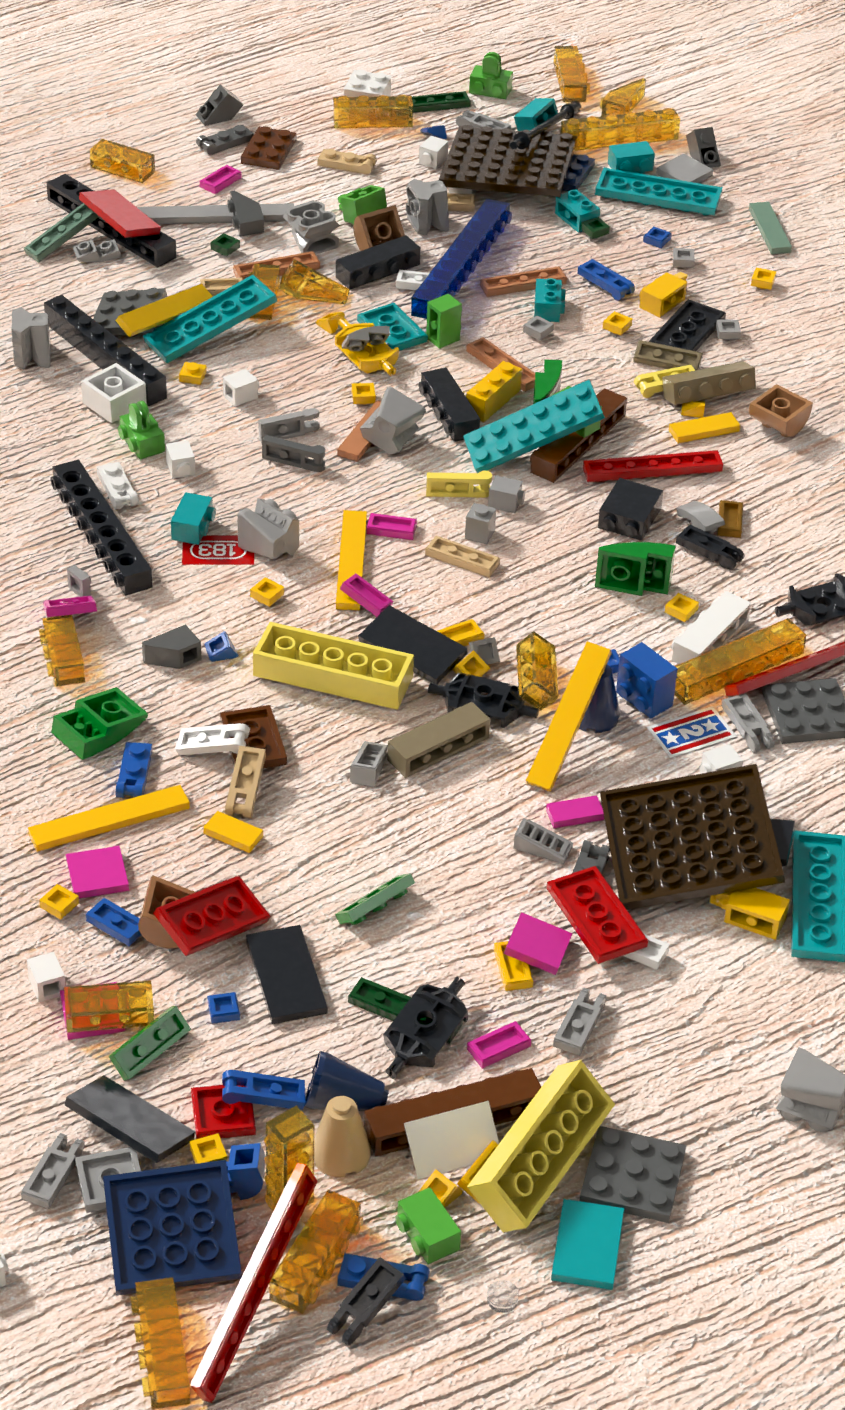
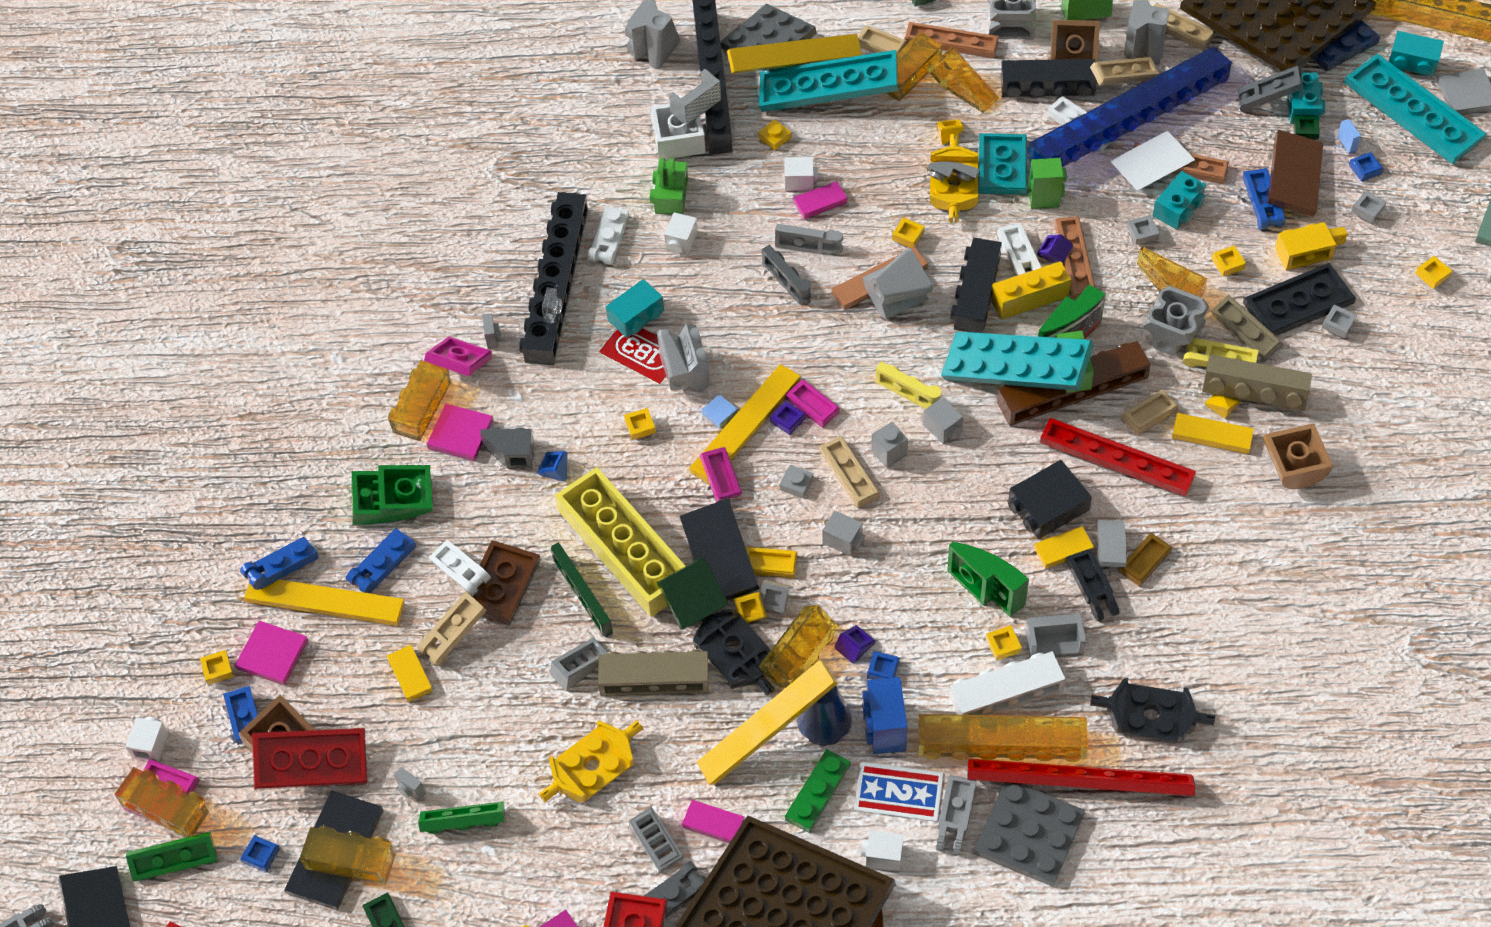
camera: 40 degrees right, 15 degrees up
(46, 807) = (279, 563): none -> blue plate
(117, 659) = (459, 432): none -> dark pink tile
(122, 358) = (697, 100): none -> light grey panel
(127, 534) = (551, 305): none -> clear plate
(271, 400) = (820, 200): none -> dark pink tile
(309, 962) = (348, 854): none -> clear yellow brick
(310, 898) = (409, 785): none -> light grey plate
(322, 560) = (719, 411): none -> light blue tile
(326, 713) = (581, 590): none -> dark green tile
(381, 543) = (787, 418): none -> dark purple tile
(426, 668) = (692, 593): none -> dark green tile
(427, 578) = (796, 481): none -> light grey plate
(433, 237) = (1124, 71): none -> tan tile
(445, 802) = (603, 744): none -> yellow plate
(463, 374) = (1018, 248): none -> white plate
(484, 361) = (1055, 248): none -> dark purple slope
(498, 592) = (843, 533): none -> light grey brick
(504, 284) = (1152, 160): none -> white sticker
(551, 210) = (1270, 89): none -> dark grey plate
(568, 657) = (854, 643): none -> dark purple slope
(588, 348) = (1167, 273): none -> clear yellow slope
(615, 255) = (1295, 173): none -> reddish brown tile
(618, 366) = (1175, 319): none -> light grey piece
(630, 221) = (1349, 136): none -> light blue tile
(633, 755) = (817, 791): none -> green plate
(648, 433) = (1150, 412): none -> tan tile
(667, 531) = (1057, 548): none -> yellow tile
(713, 583) = (1056, 633): none -> light grey panel

